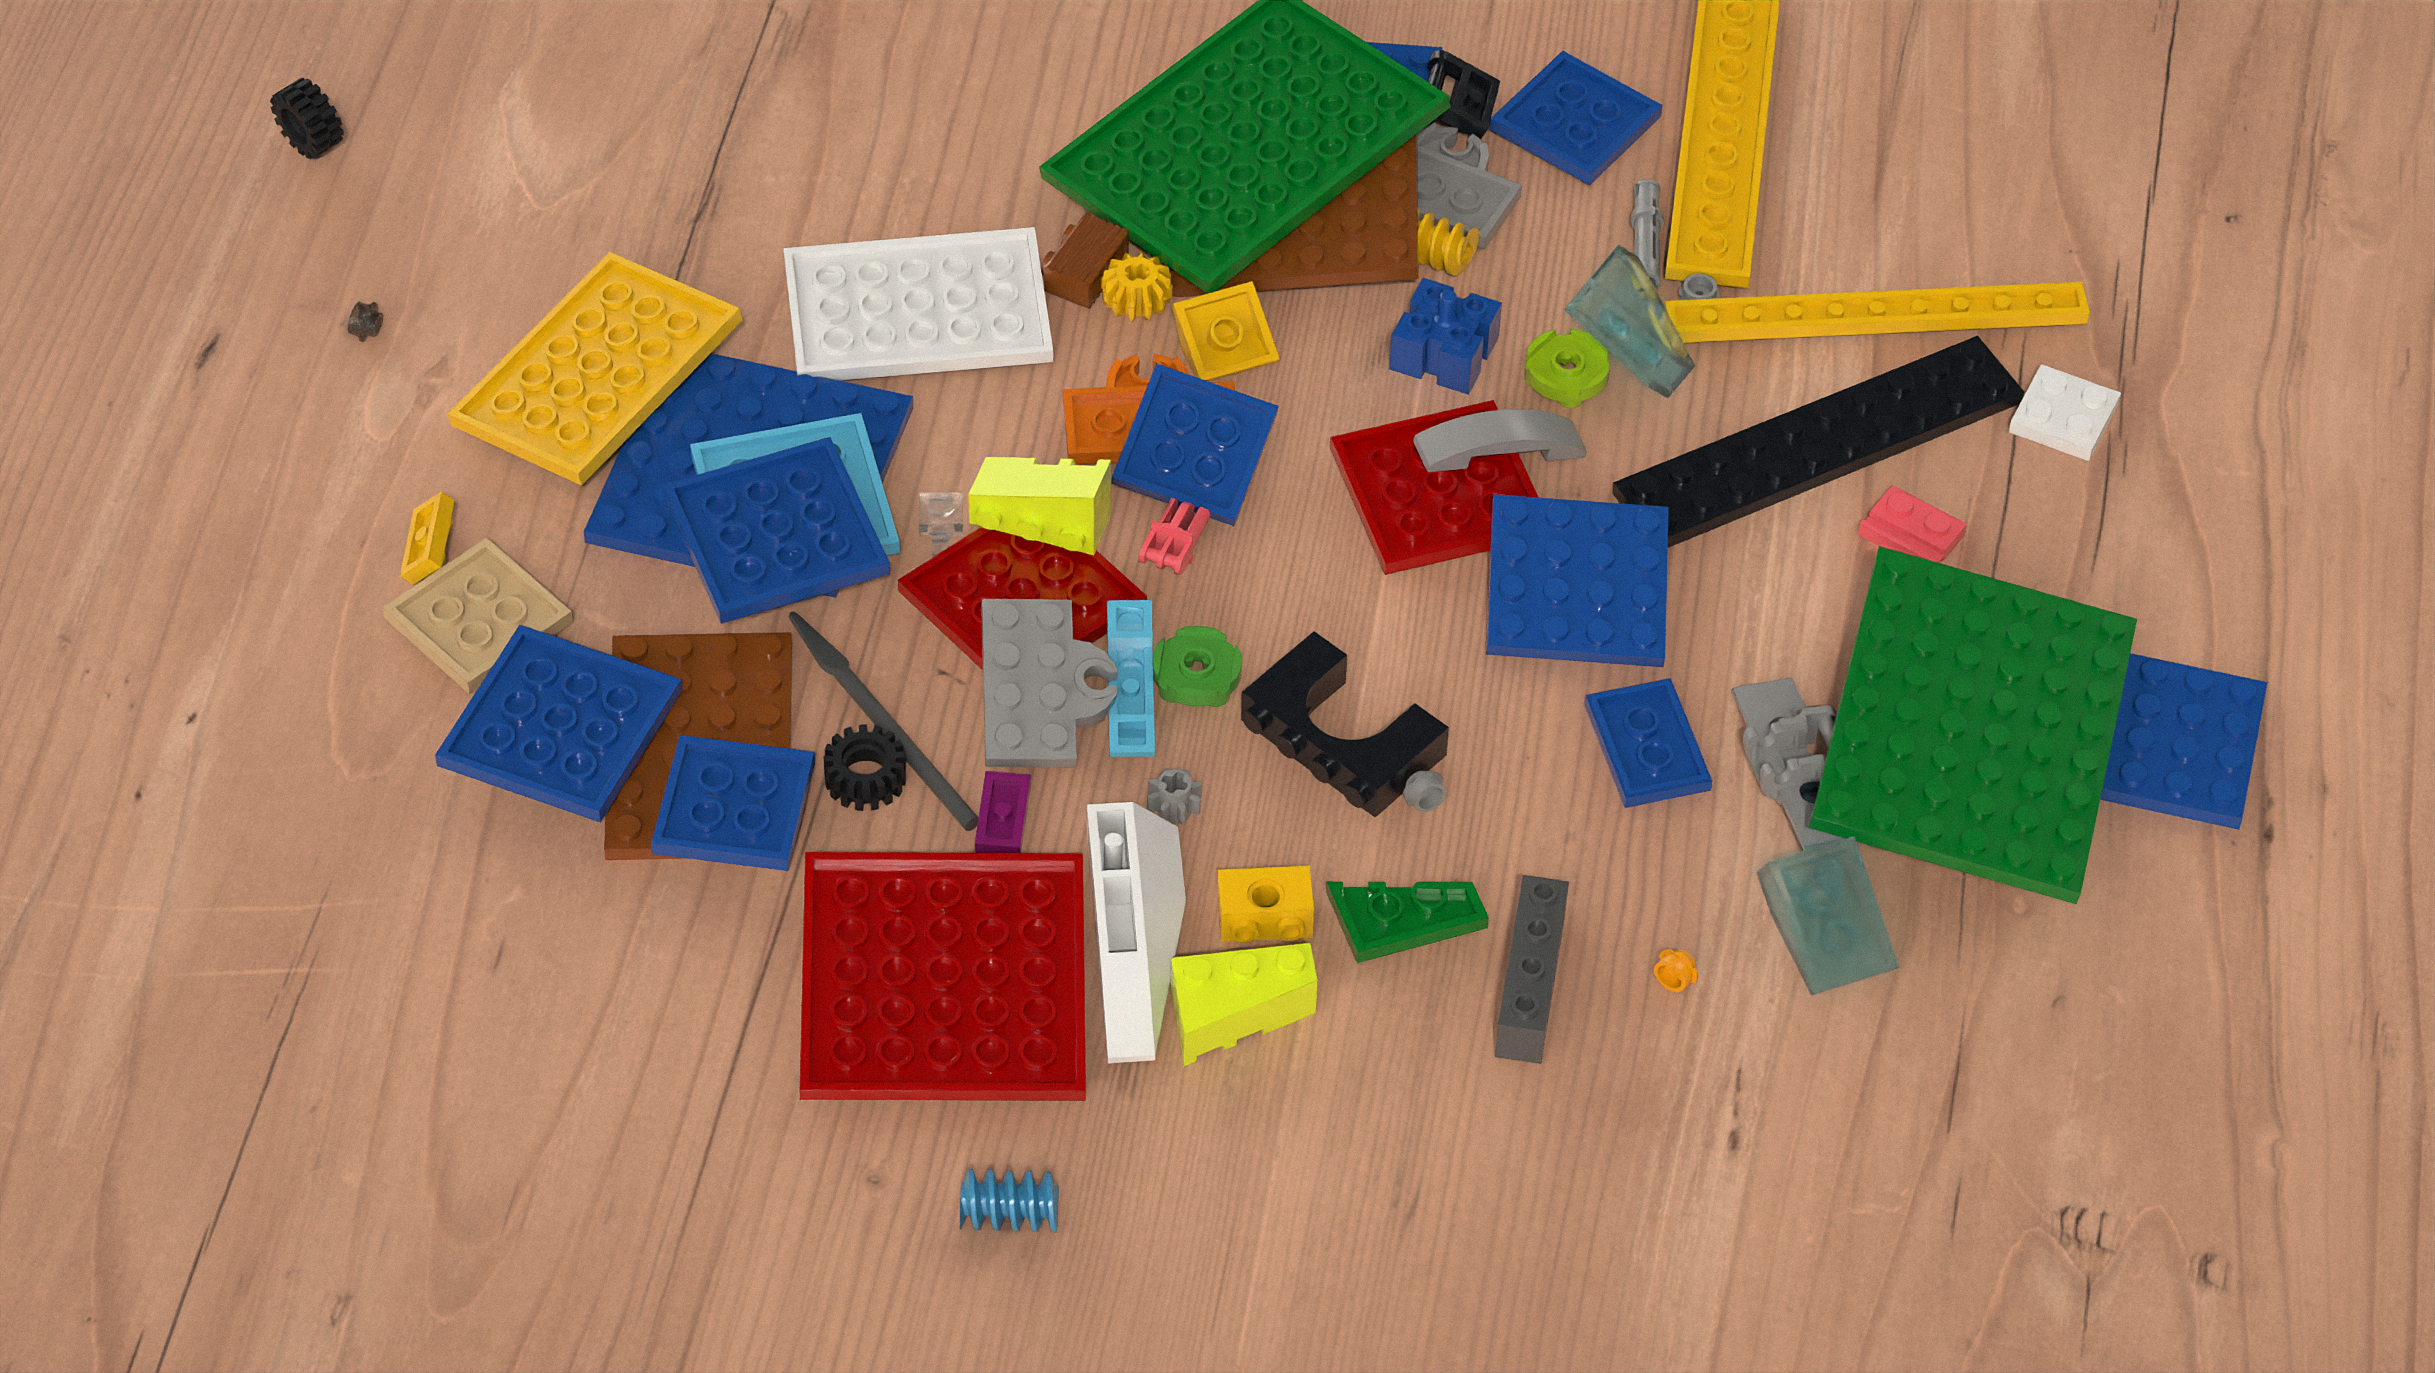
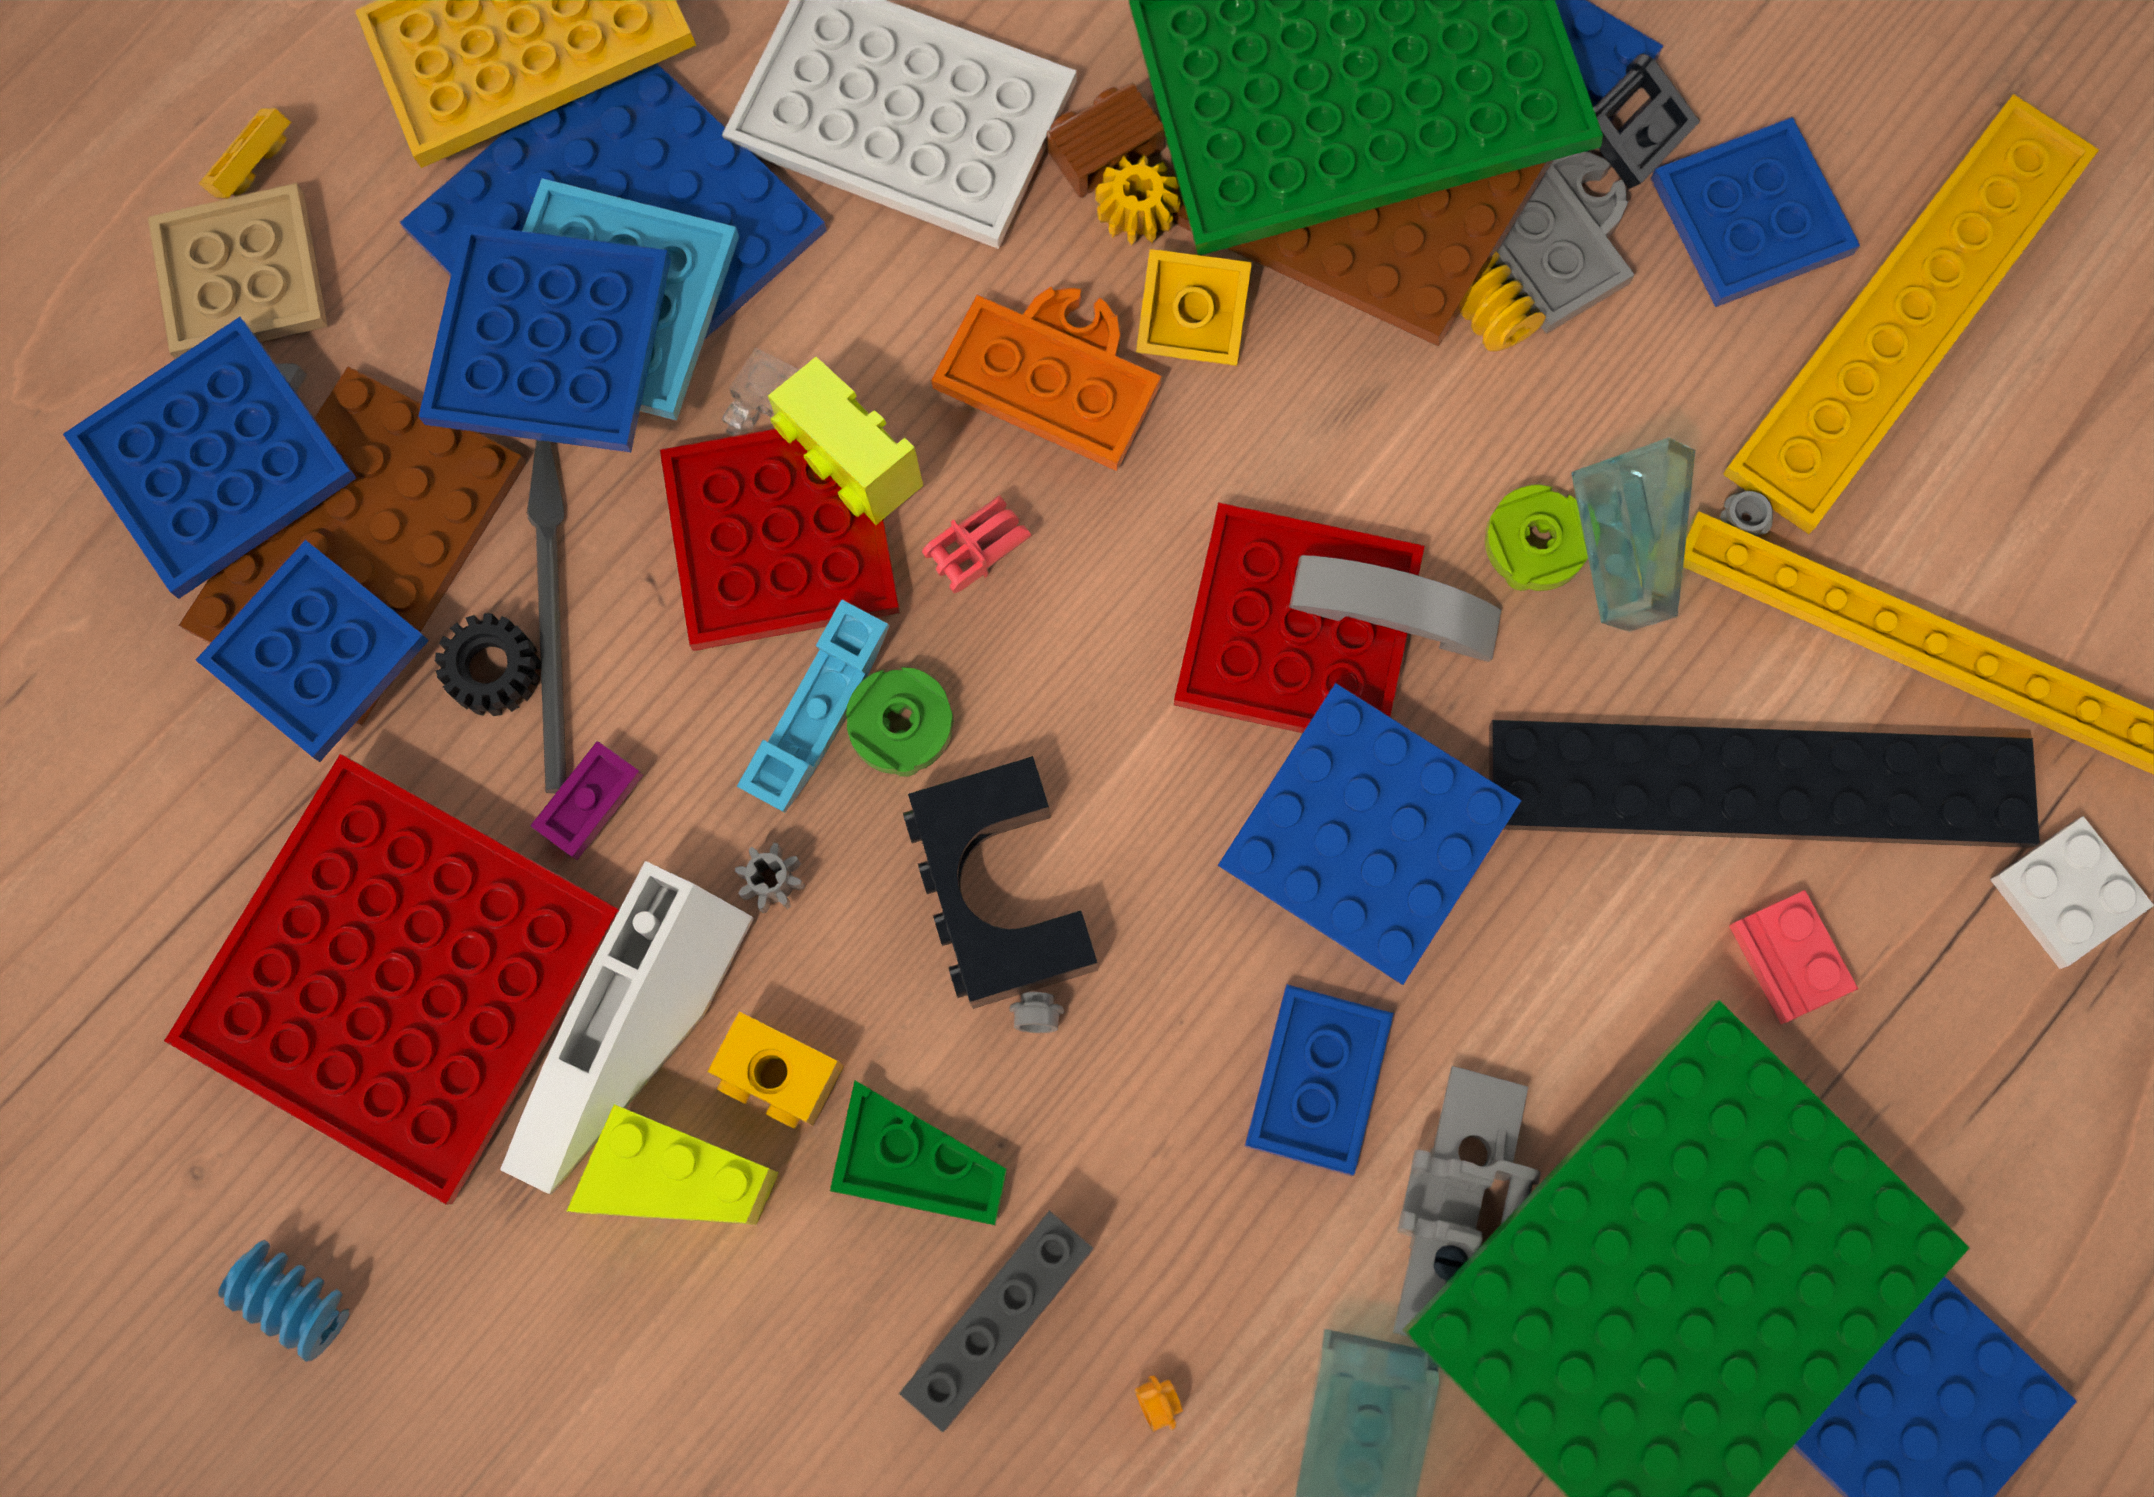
camera: 35 degrees right, 25 degrees up
(1037, 683) = (712, 660): light grey plate -> none
(1195, 443) = (1060, 443): blue plate -> none
(1445, 336) = (1425, 433): blue brick -> none
(1646, 222) = (1746, 391): light grey pin -> none

